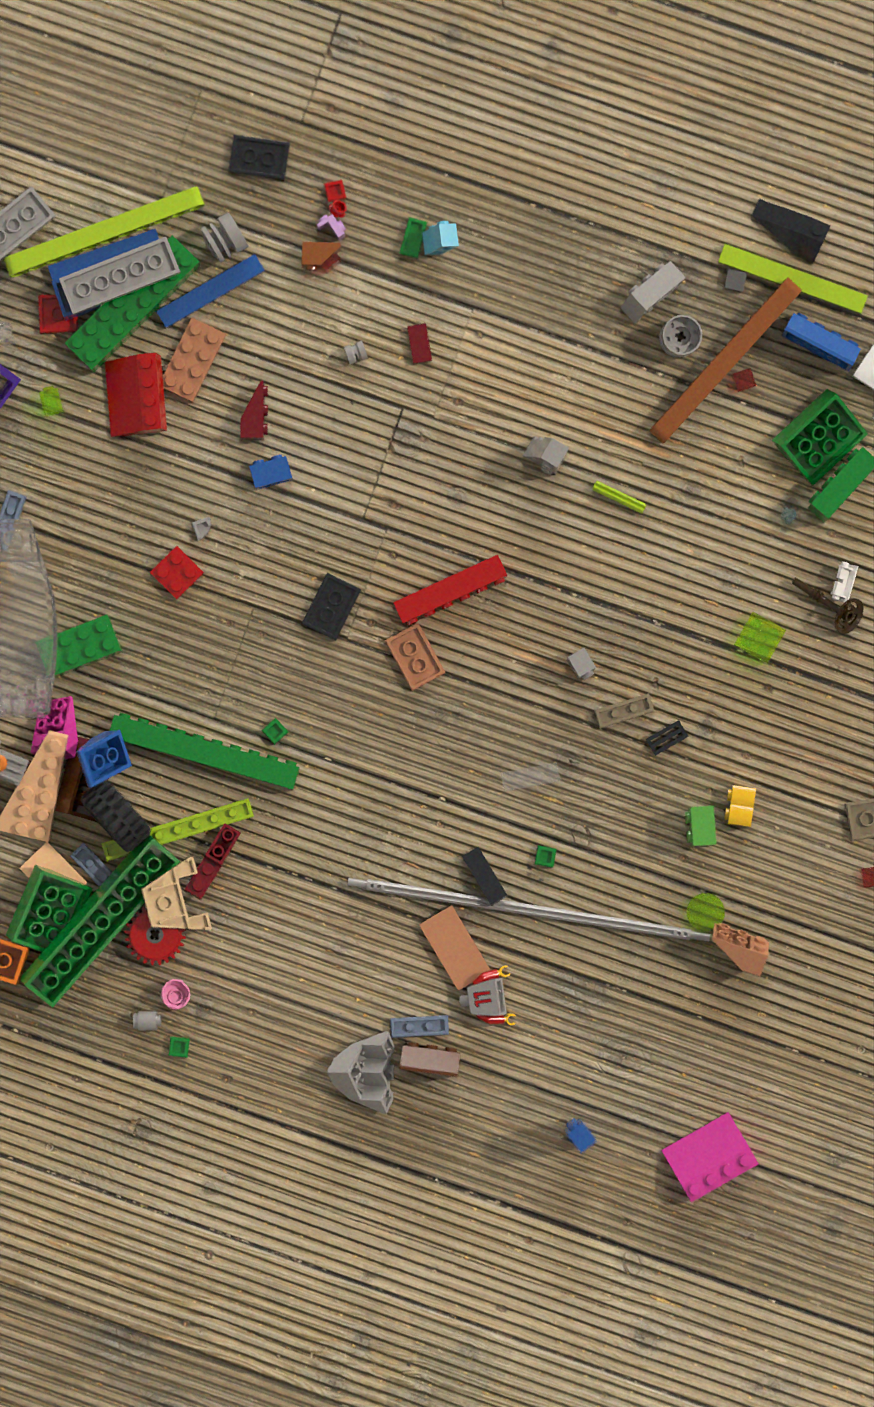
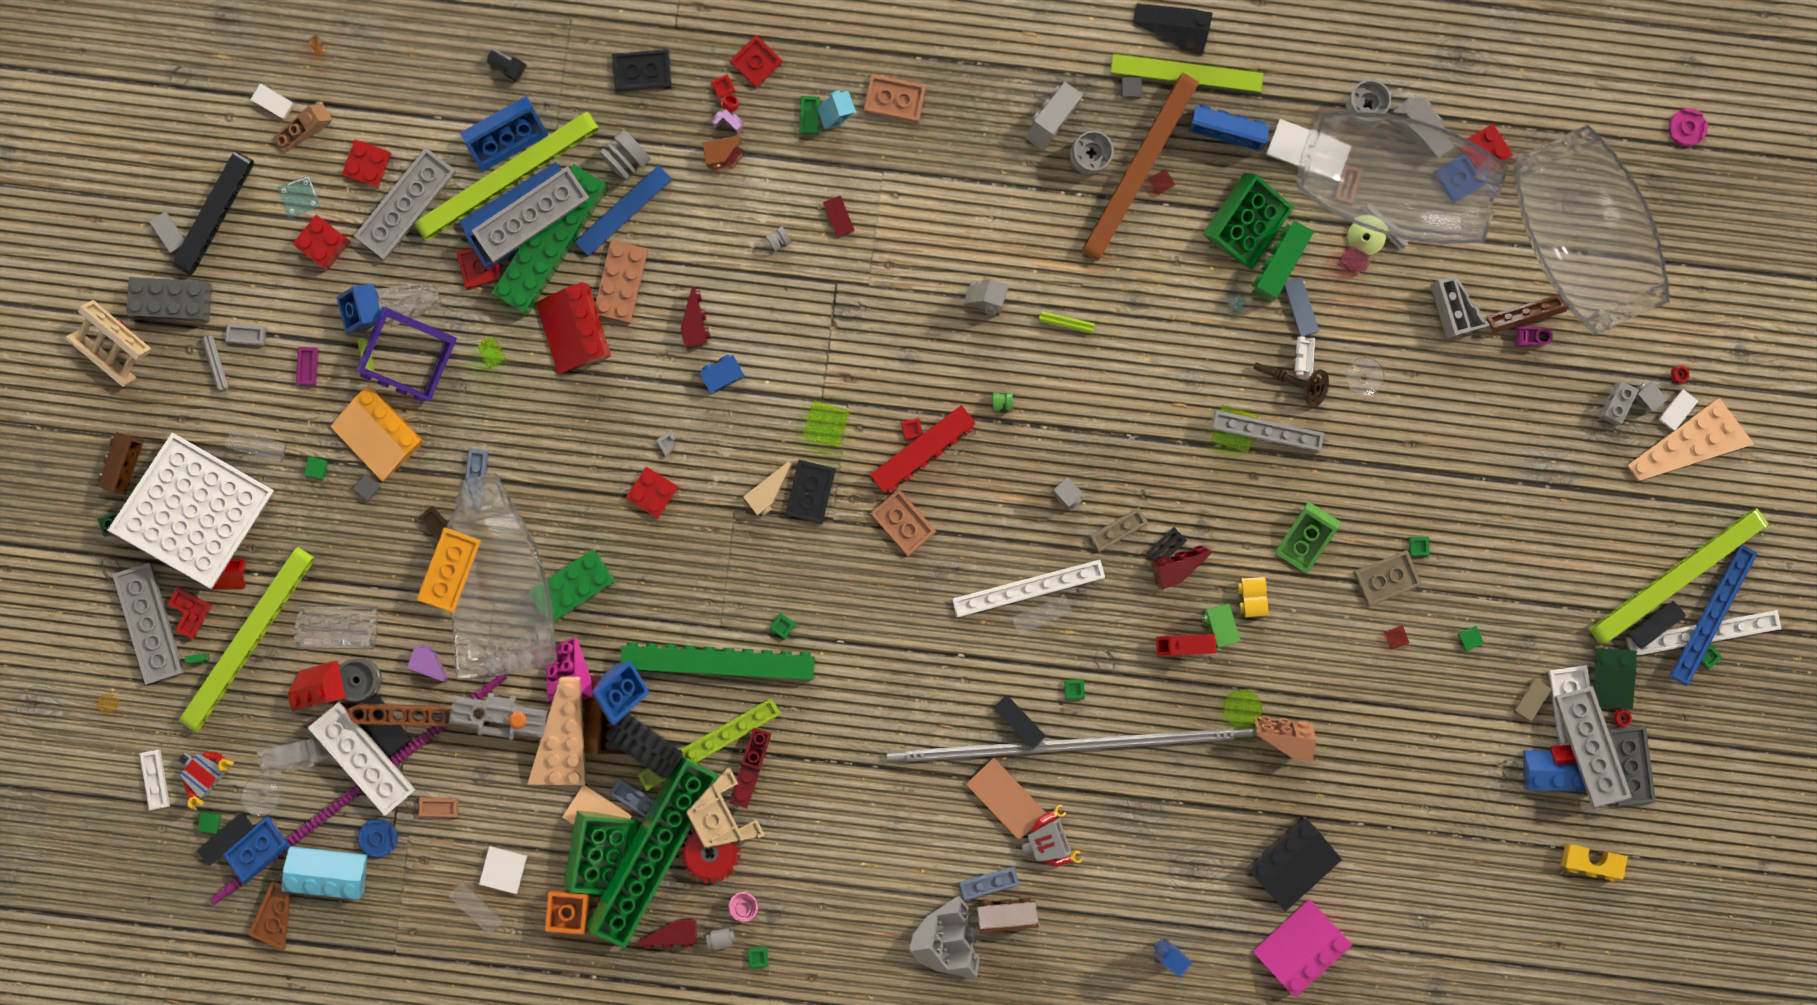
camera: 15 degrees left, 0 degrees up
(106, 1004) = (677, 932): none -> dark red slope
(111, 189) = (504, 133): none -> blue slope
(131, 125) = (511, 67): none -> black piece
(287, 598) = (765, 494): none -> tan slope
(361, 543) = (826, 423): none -> clear neon green plate
(373, 173) = (756, 61): none -> red tile
(444, 567) = (911, 429): none -> red tile
(500, 239) = (894, 98): none -> nougat tile
(523, 748) = (1028, 588): none -> white tile
(538, 560) = (1002, 401): none -> bright green wheel
(662, 836) = (1185, 645): none -> red slope
(671, 761) = (1177, 568): none -> dark red slope
(721, 1074) = (1294, 863): none -> black slope
(791, 646) = (1267, 431): none -> light grey tile
(807, 759) = (1308, 537): none -> bright green slope
(852, 533) = (1301, 307): none -> sand blue tile

